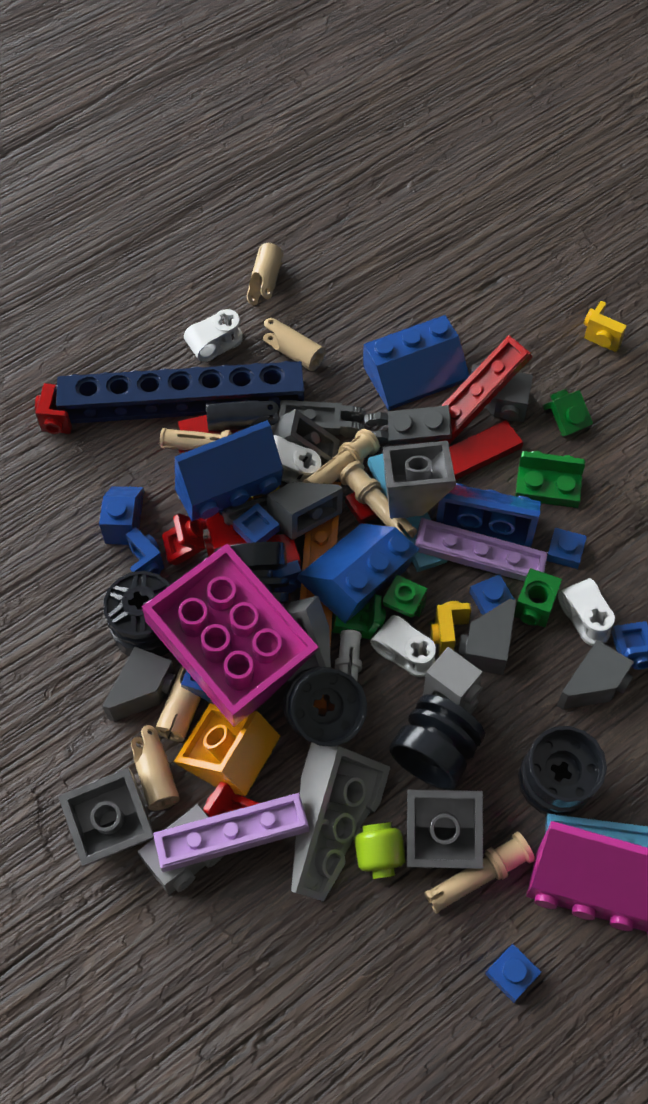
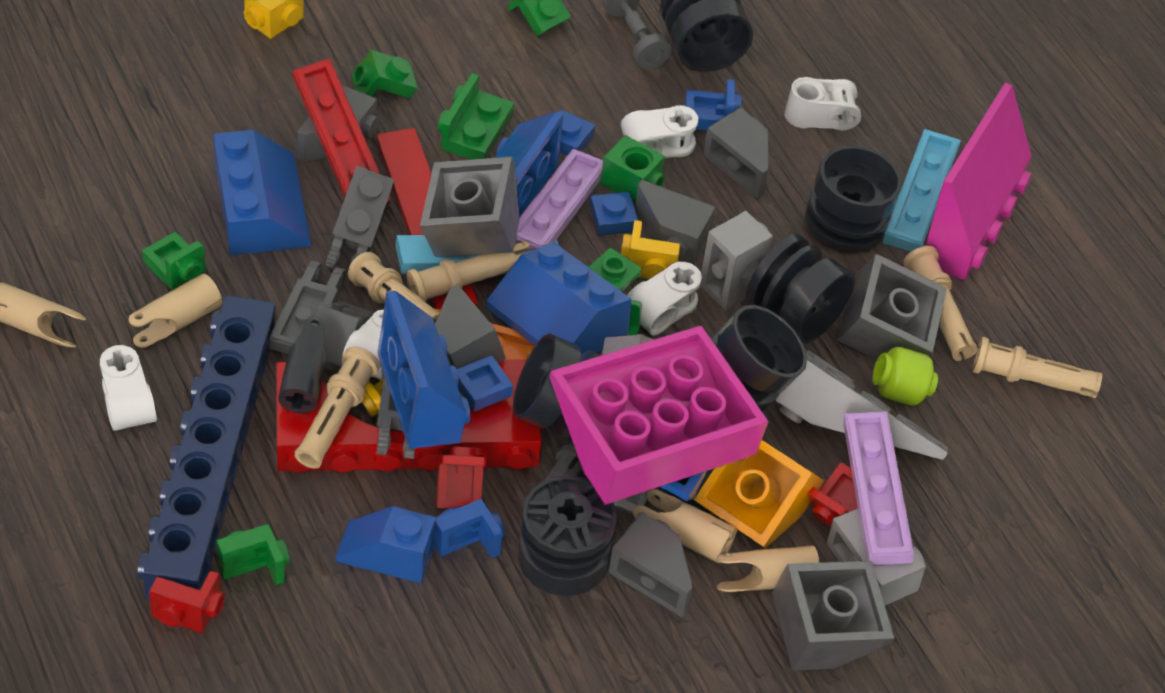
camera: 85 degrees left, 10 degrees down
(100, 440) = (252, 550): none -> green bracket
(336, 332) = (175, 260): none -> green bracket
(429, 950) = (1018, 365): none -> tan pin
(513, 973) = (1043, 307): blue plate -> none

